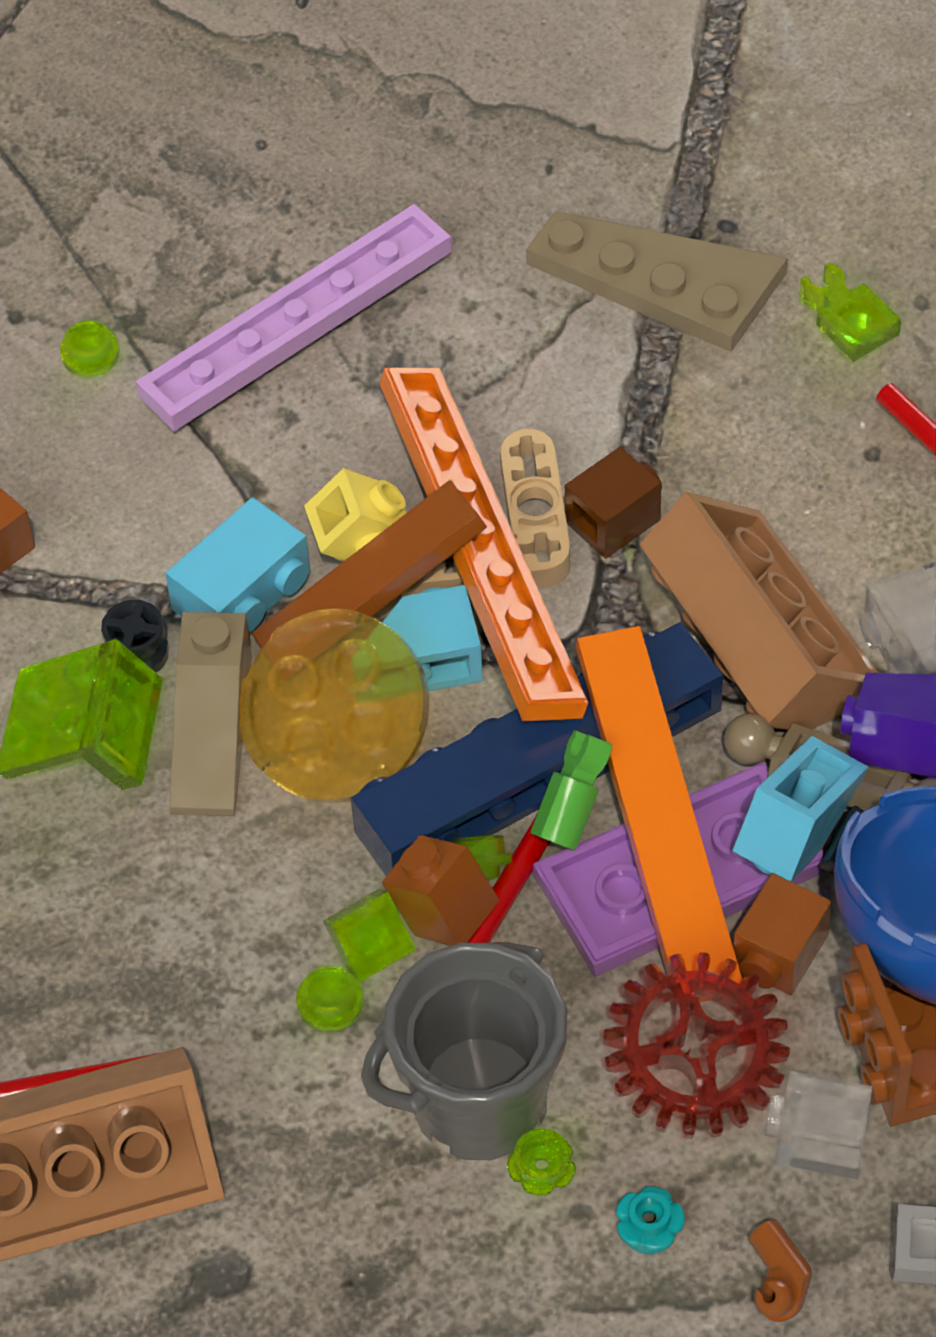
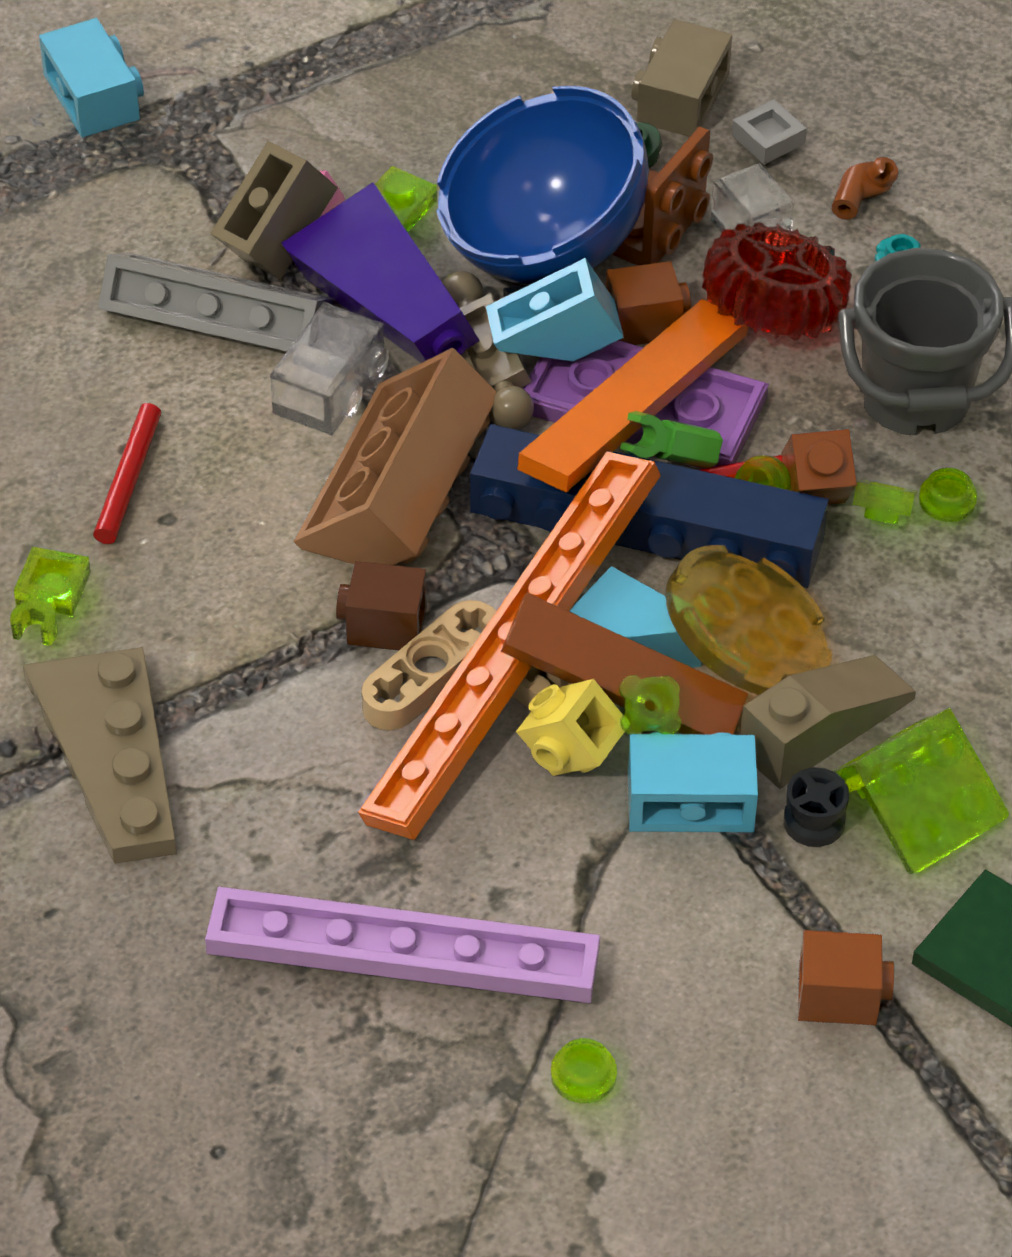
camera: 135 degrees left, 5 degrees down
(314, 562) = (662, 692): none -> clear neon green plate

